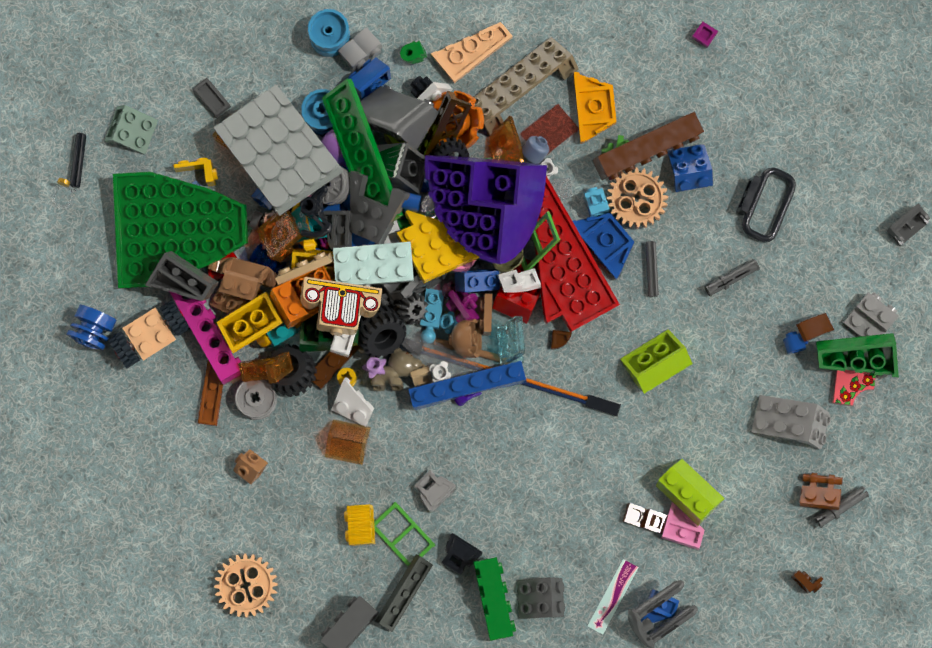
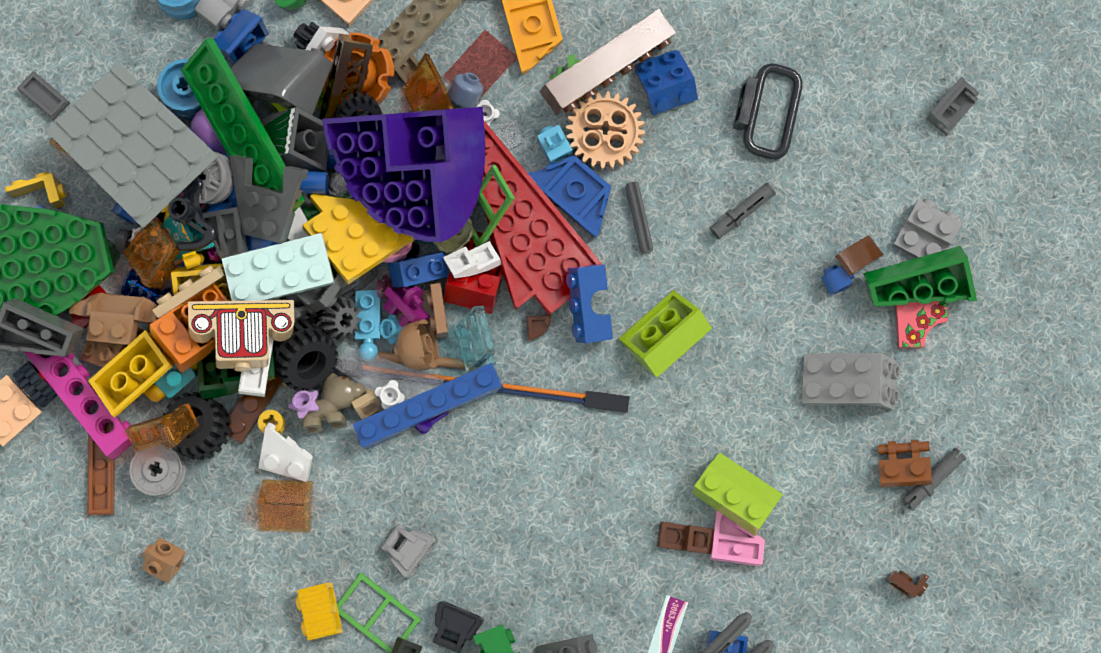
camera: 10 degrees left, 0 degrees up
(600, 313) = (583, 284): none -> blue arch

